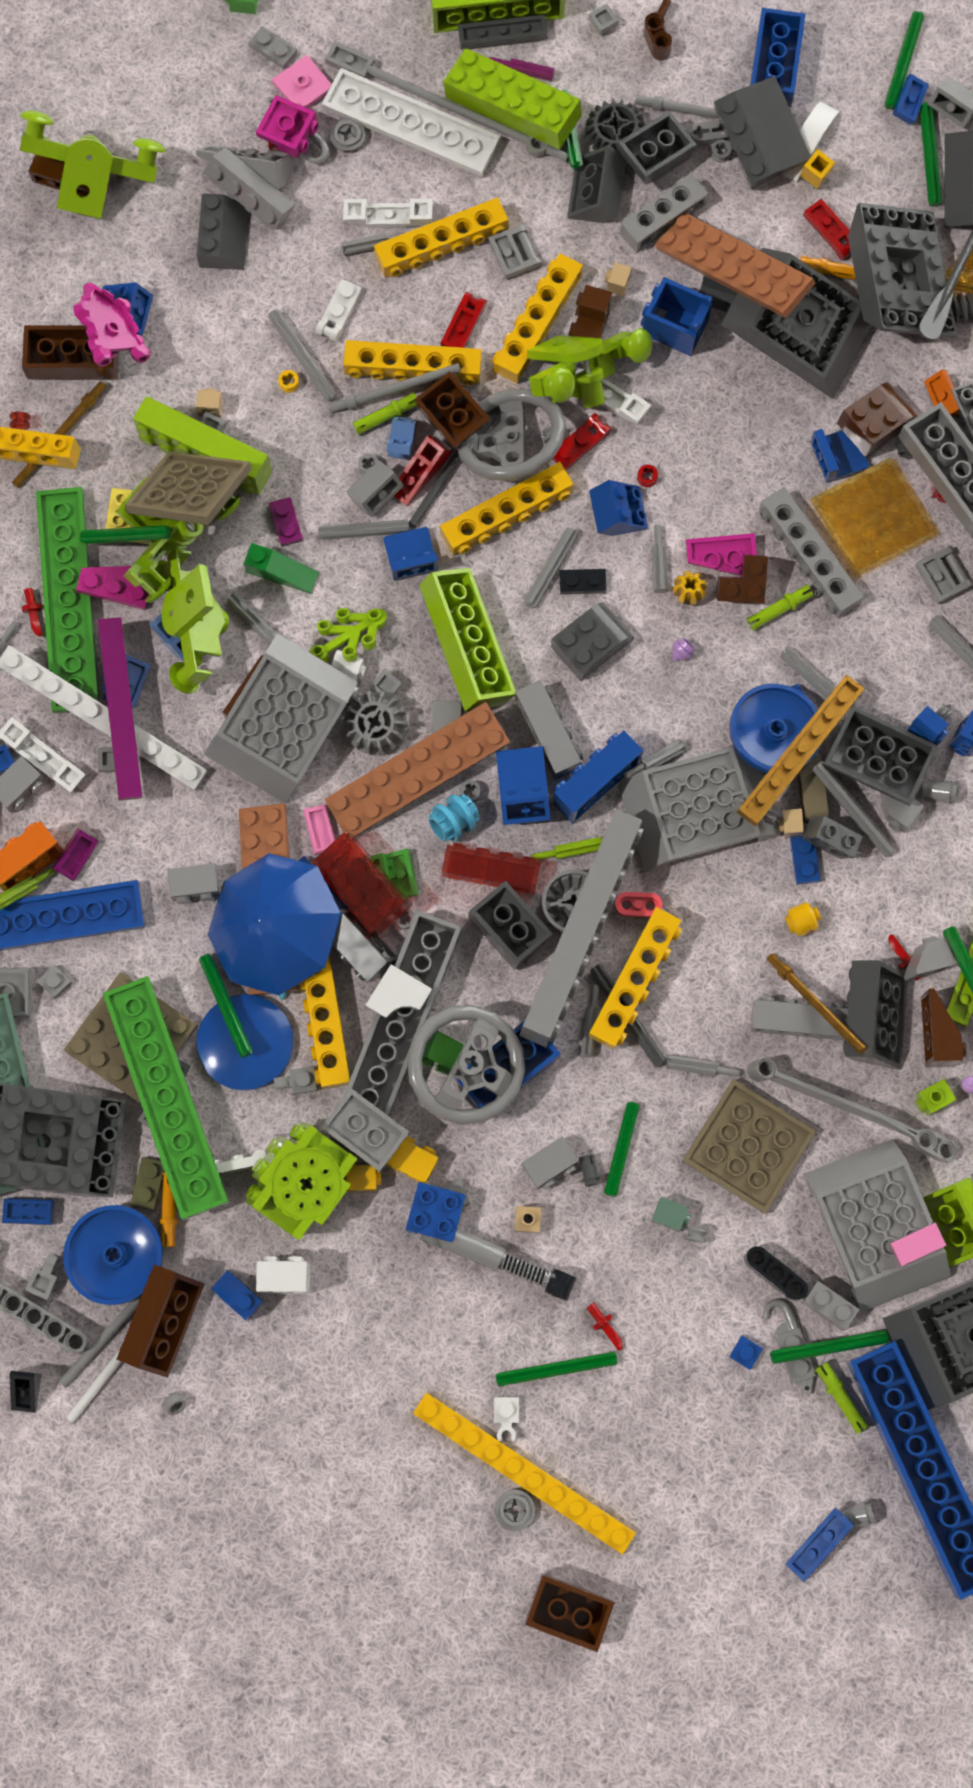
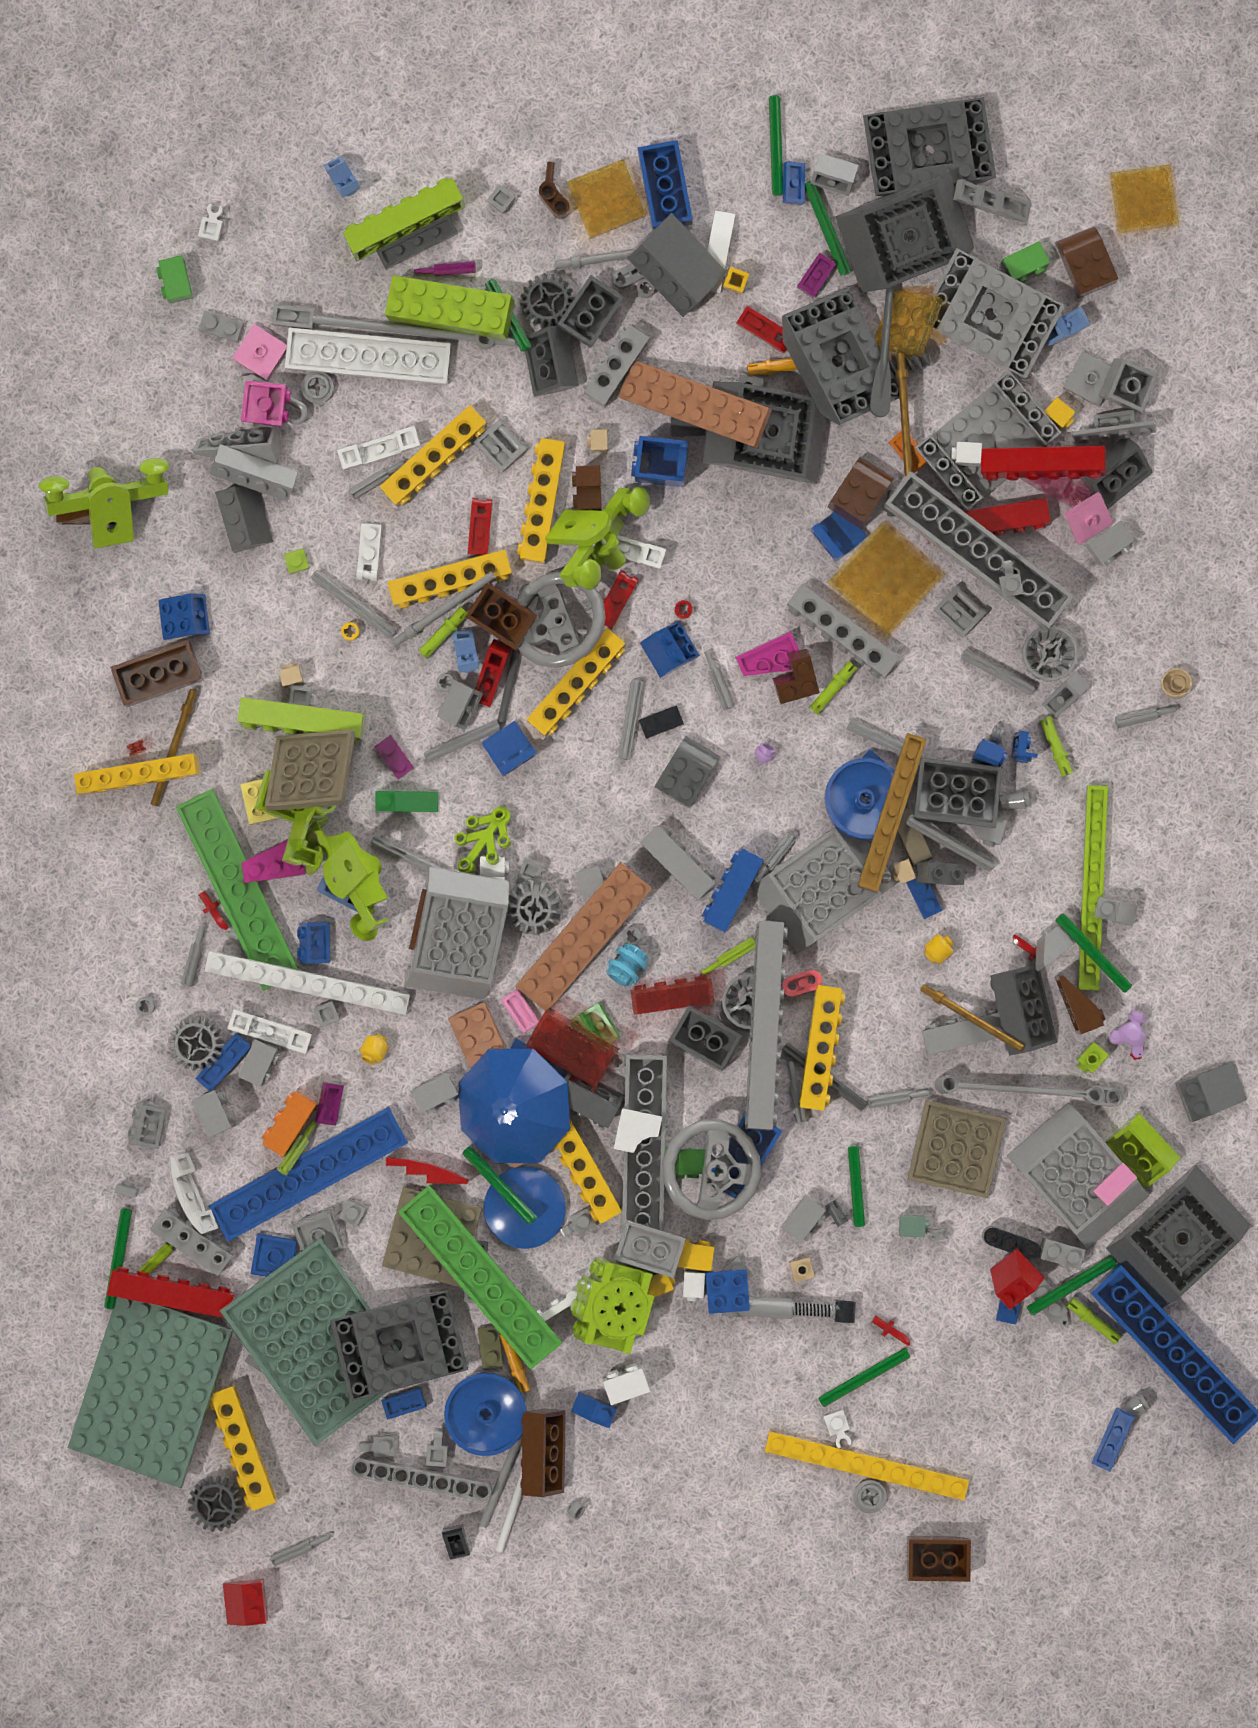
camera: 20 degrees left, 10 degrees up
(109, 326) = (185, 645): dark pink shield -> none
(120, 709) = (321, 972): magenta tile -> none
(125, 534) = (270, 825): green axle -> none
(146, 813) = (374, 1049): none -> yellow head
(158, 968) = (434, 1173): none -> red slope
(260, 294) = (296, 561): none -> lime plate
(400, 1194) = (693, 1285): none -> white brick
(467, 638) = (584, 810): lime brick -> none
(523, 785) = (674, 919): blue slope -> none
(690, 581) = (751, 692): yellow piece -> none
(711, 53) = (606, 199): none -> clear yellow plate
(767, 1314) = (1015, 1278): none -> red slope
(905, 192) = (816, 275): none -> magenta plate
(962, 312) = (902, 374): none -> pearl gold bar

